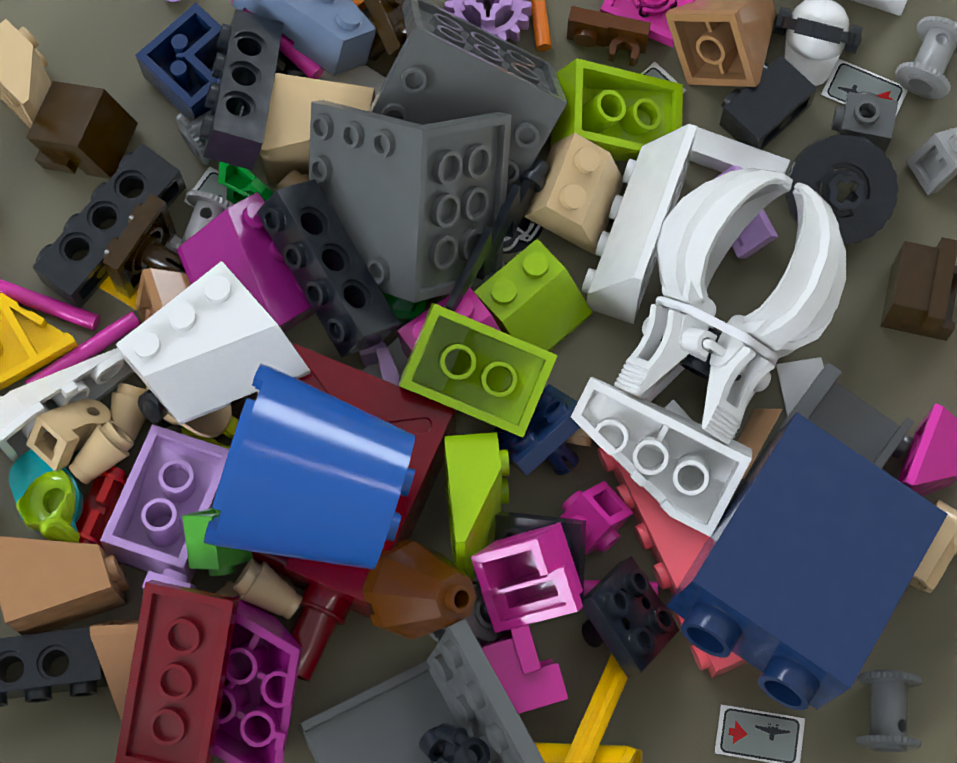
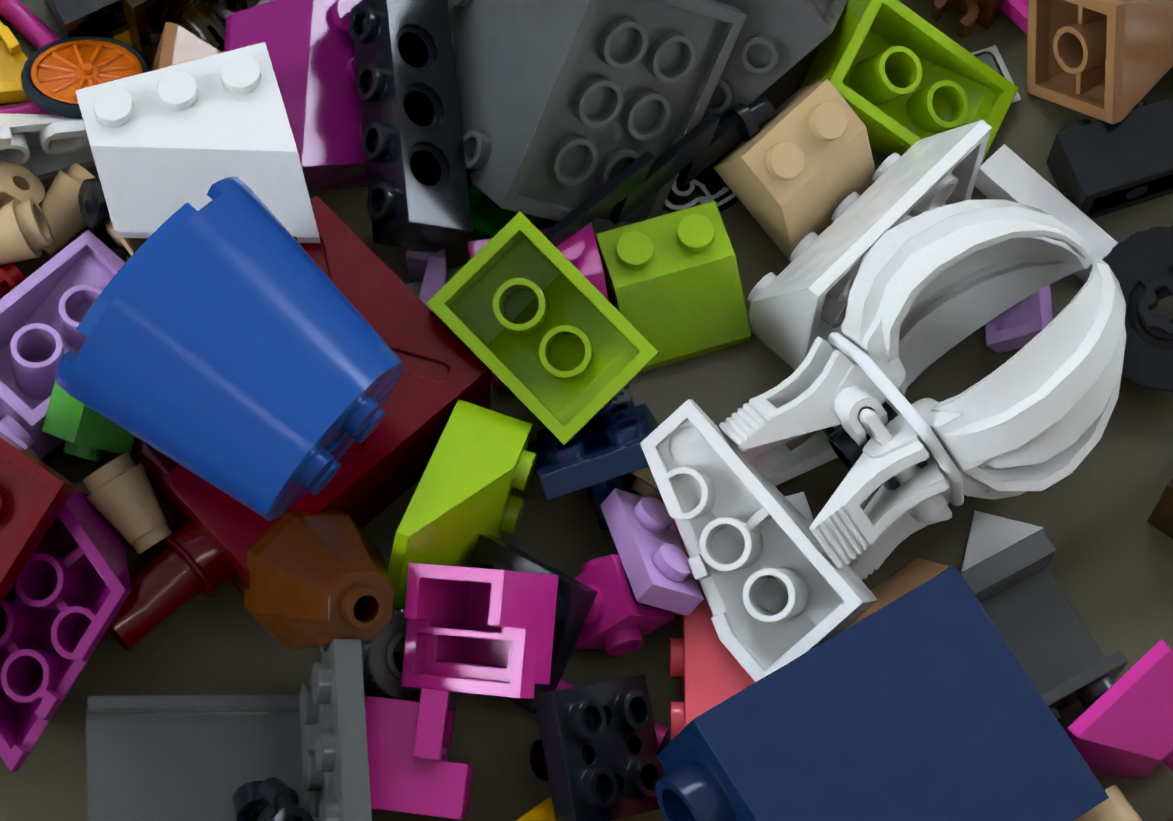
camera: 20 degrees right, 5 degrees down
(98, 322) = (74, 64): none -> orange wheel
(603, 479) = (651, 552): none -> lavender plate

